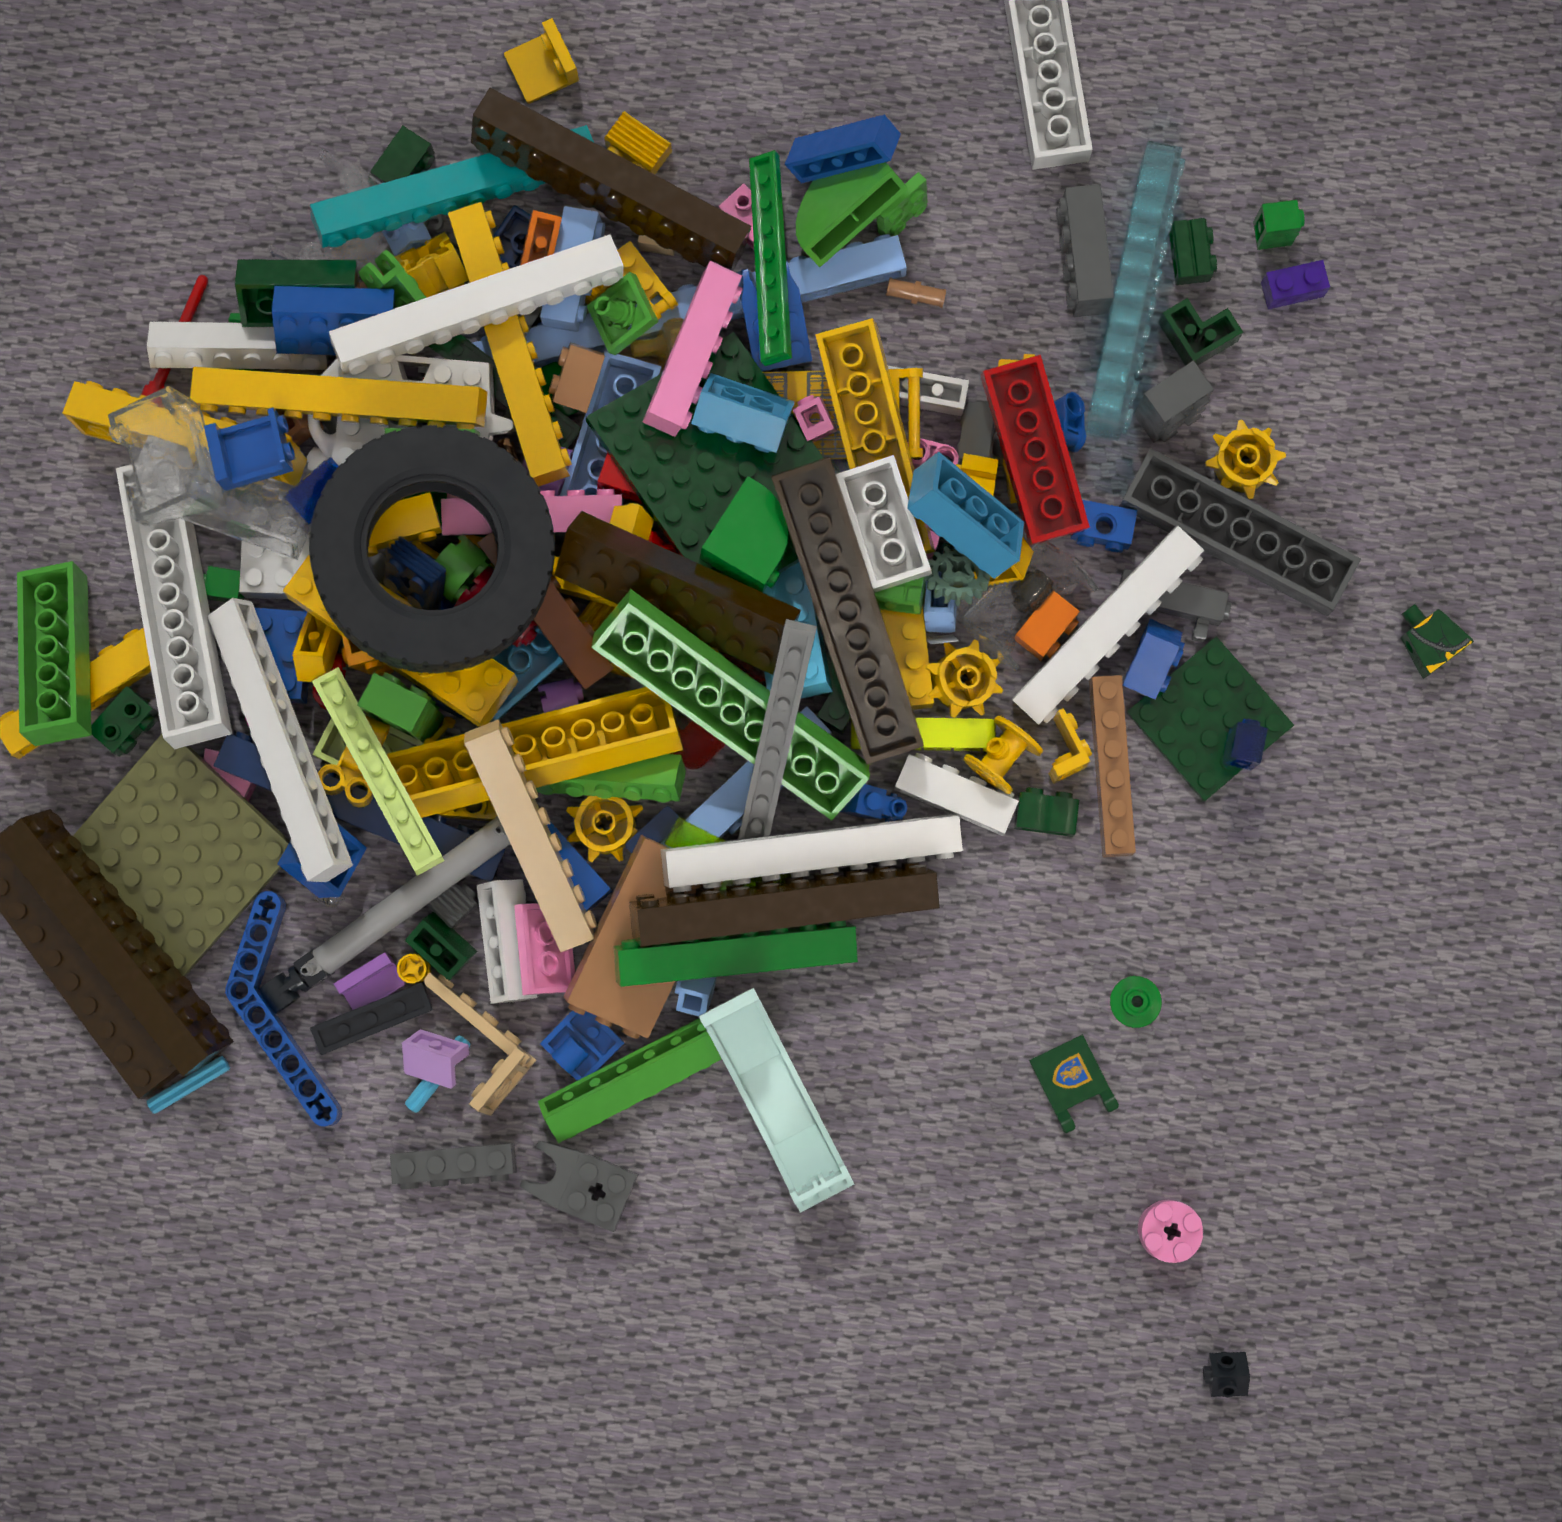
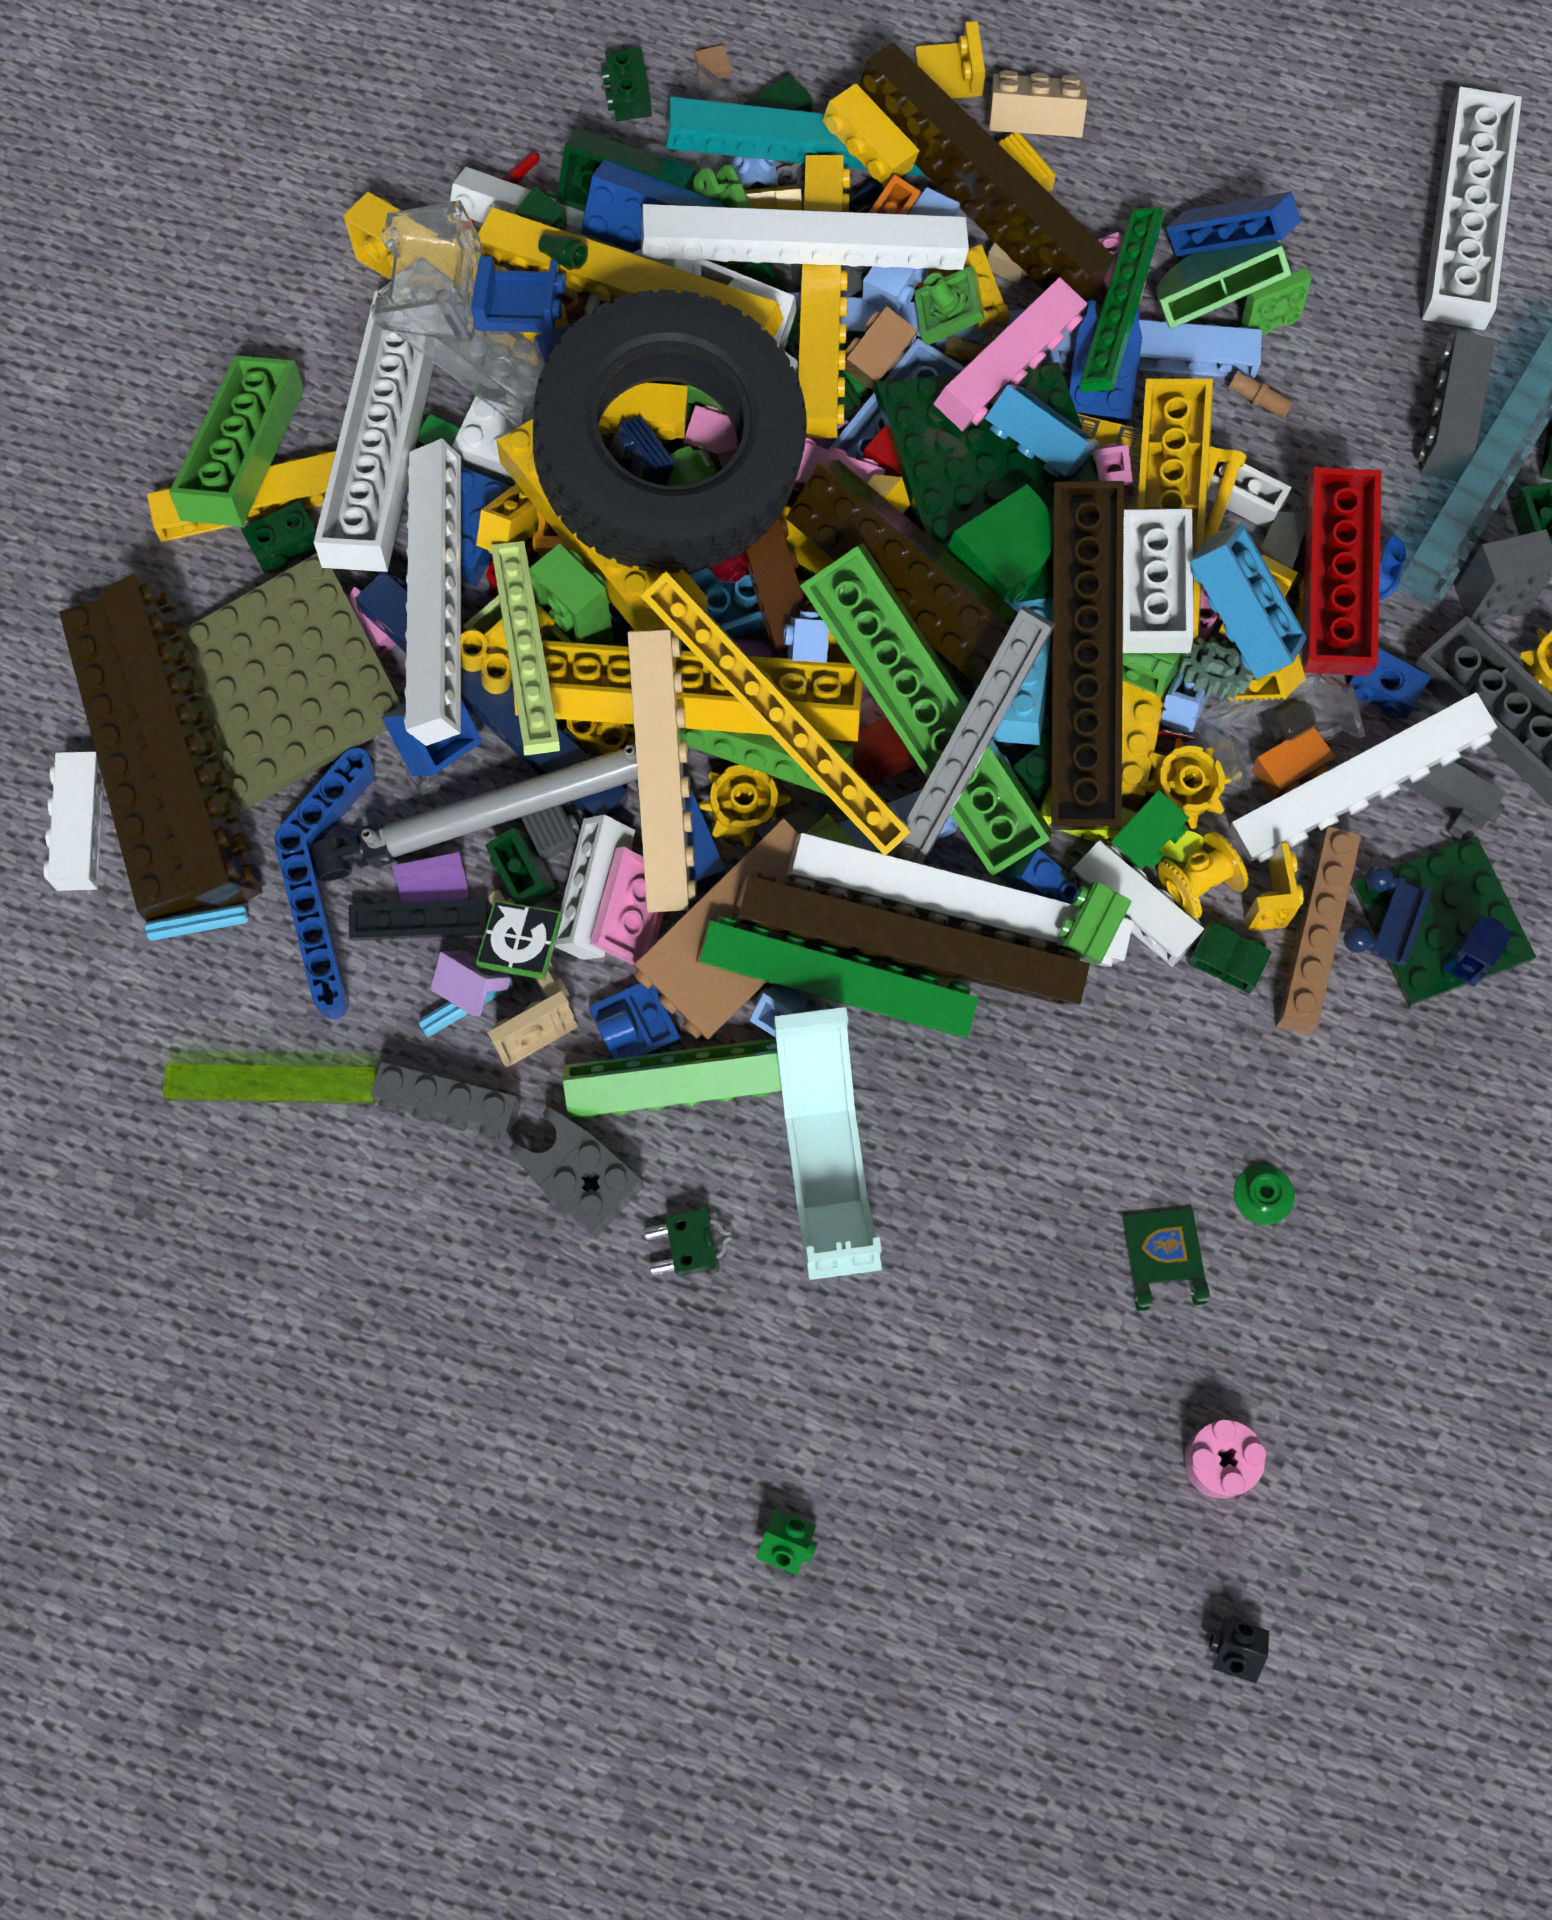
camera: 15 degrees right, 10 degrees down
(52, 1036) = (74, 822): none -> white brick
(238, 353) = (542, 209): none -> dark green brick
(260, 180) = (628, 84): none -> dark green brick
(275, 394) = (567, 250): none -> dark green cone
(303, 1200) = (269, 1084): none -> clear neon green plate
(328, 130) = (715, 60): none -> medium nougat tile
(409, 967) = (481, 875): yellow wheel -> none
(464, 1012) = (519, 939): none -> tile
(498, 175) = (870, 135): none -> yellow brick
(609, 680) = (806, 637): none -> light blue brick
(609, 762) = (776, 713): none -> yellow brick
(633, 81) = (1037, 104): none -> tan brick
(697, 1206) = (693, 1242): none -> dark green piece
(854, 1418) = (787, 1542): none -> green brick
(927, 834) = (1093, 922): none -> bright green brick
(949, 735) = (1150, 830): none -> green brick
(1155, 654) = (1400, 832): blue brick -> none
(1175, 738) = (1399, 921): none -> dark blue gear

